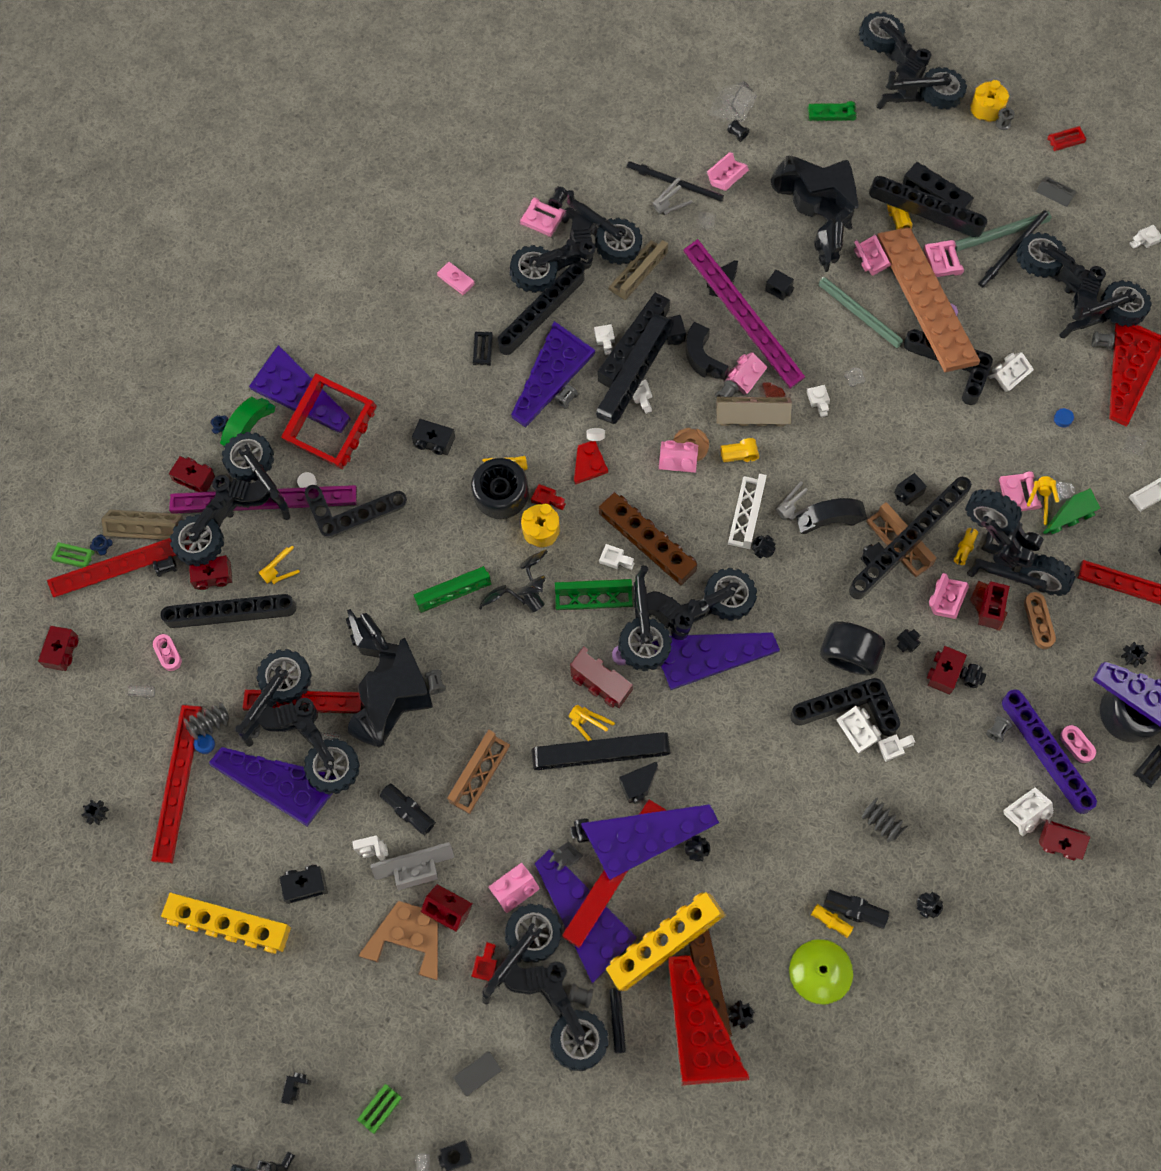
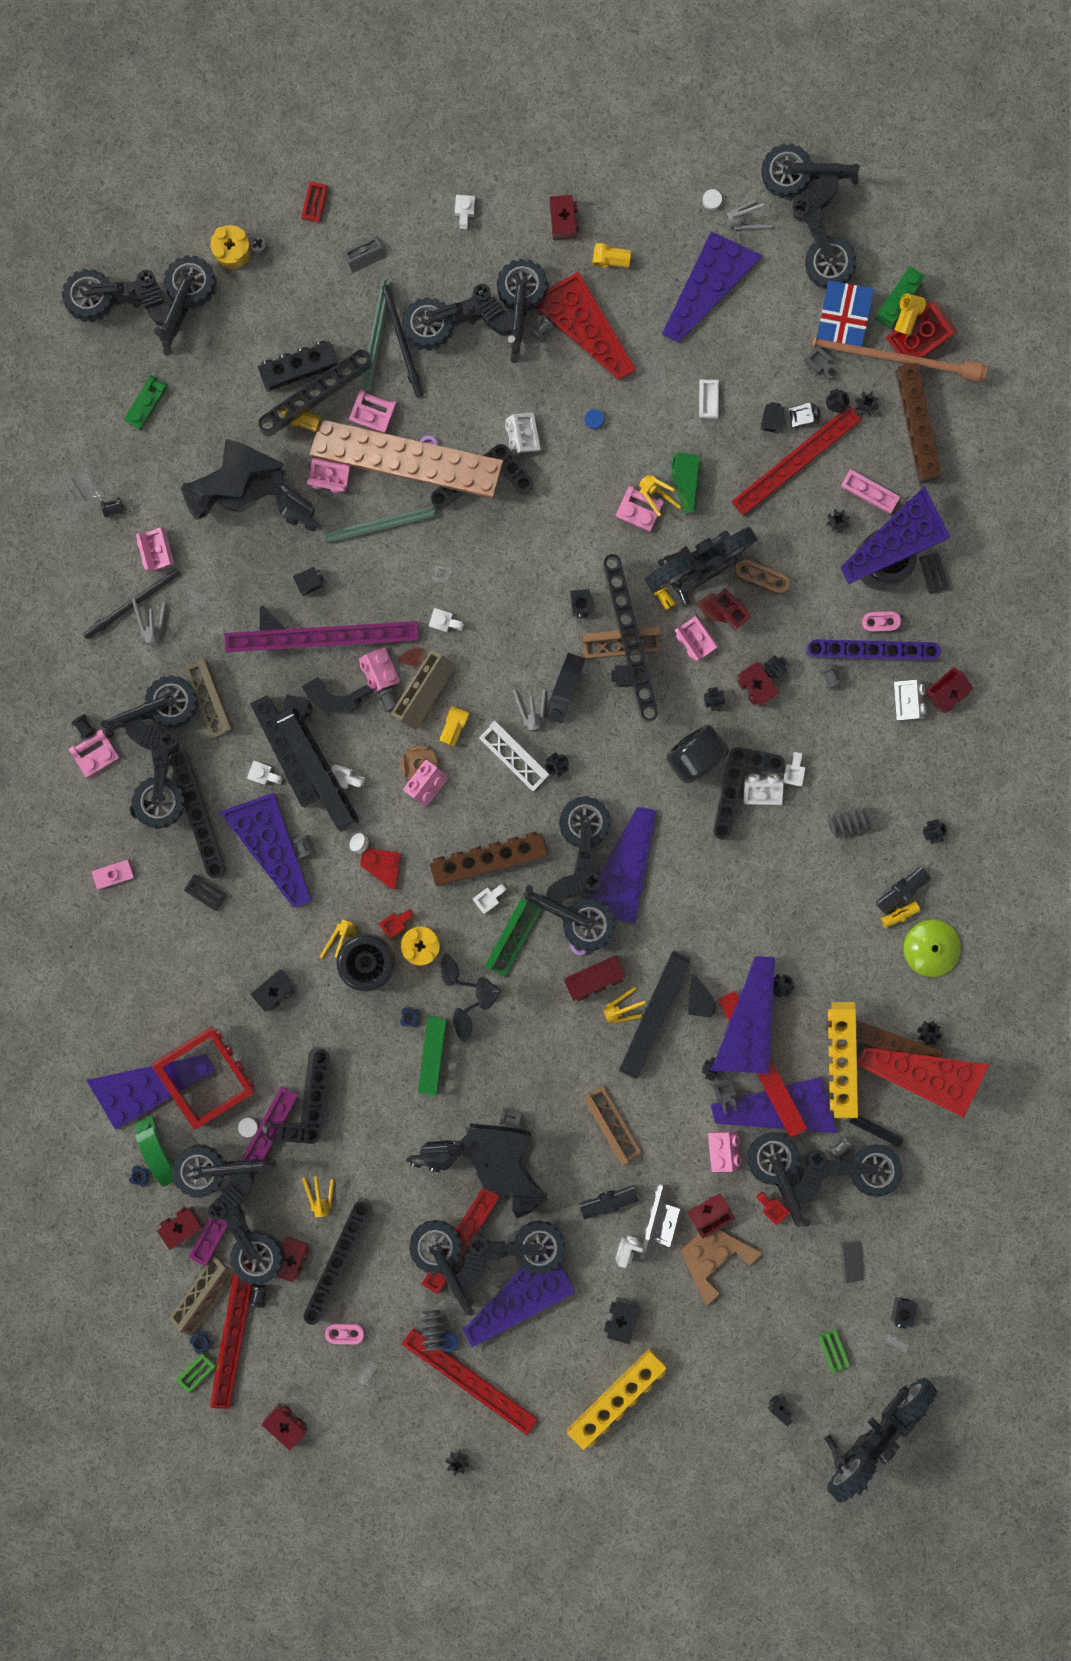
camera: 60 degrees left, 20 degrees up
(474, 549) = (408, 1012): none -> dark blue plate

